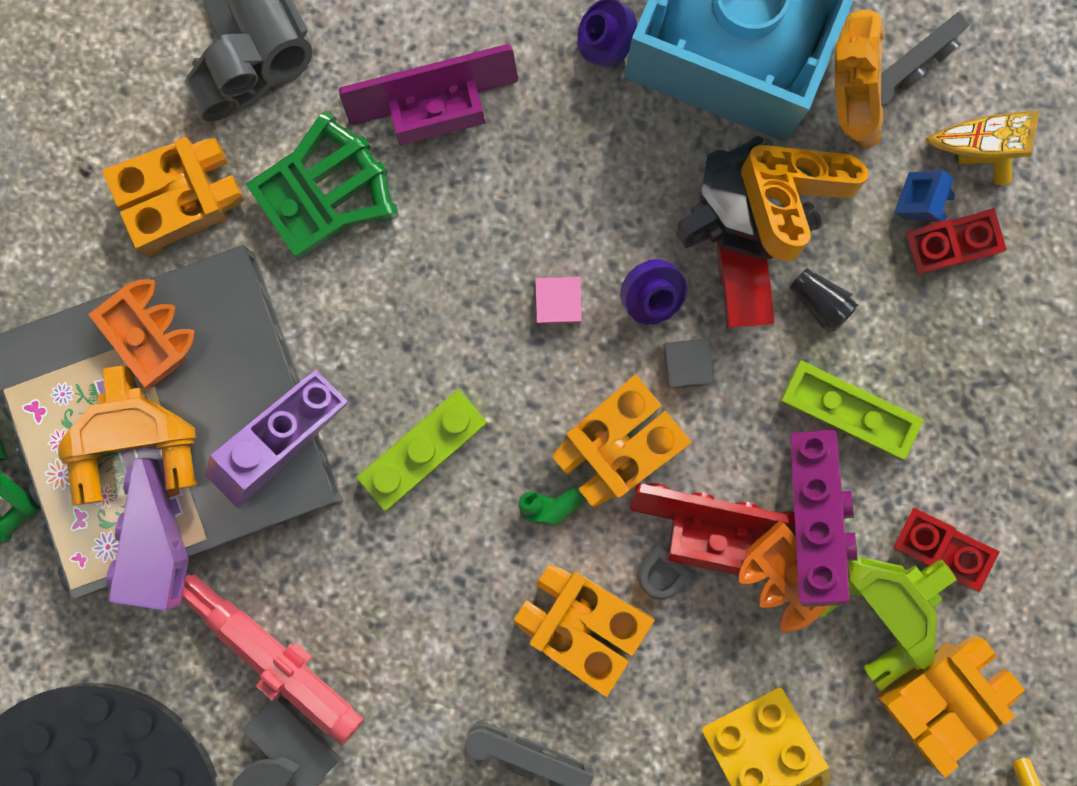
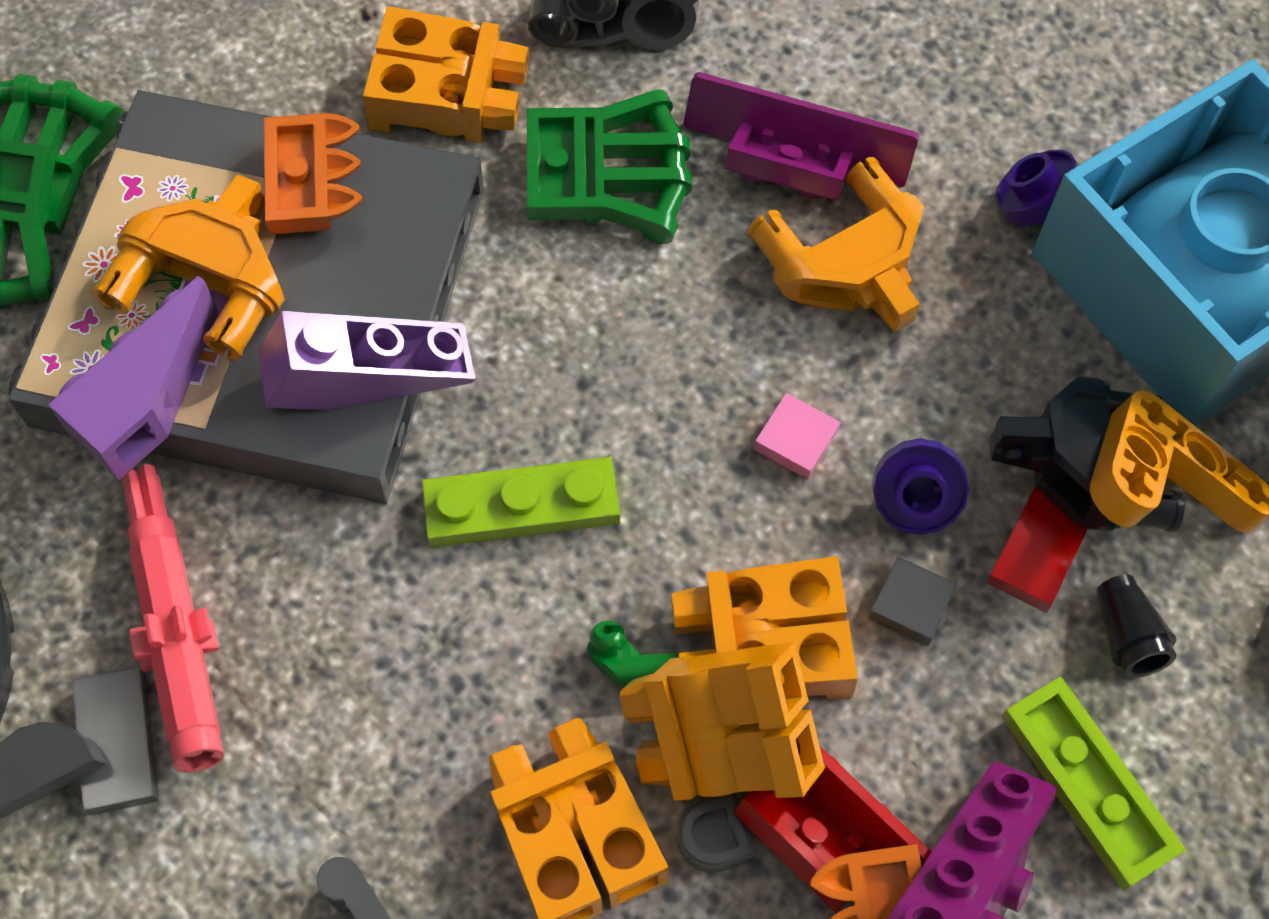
camera: 30 degrees right, 20 degrees down
(528, 158) = (856, 265): none -> light orange connector
(636, 520) = (726, 724): none -> light orange hips

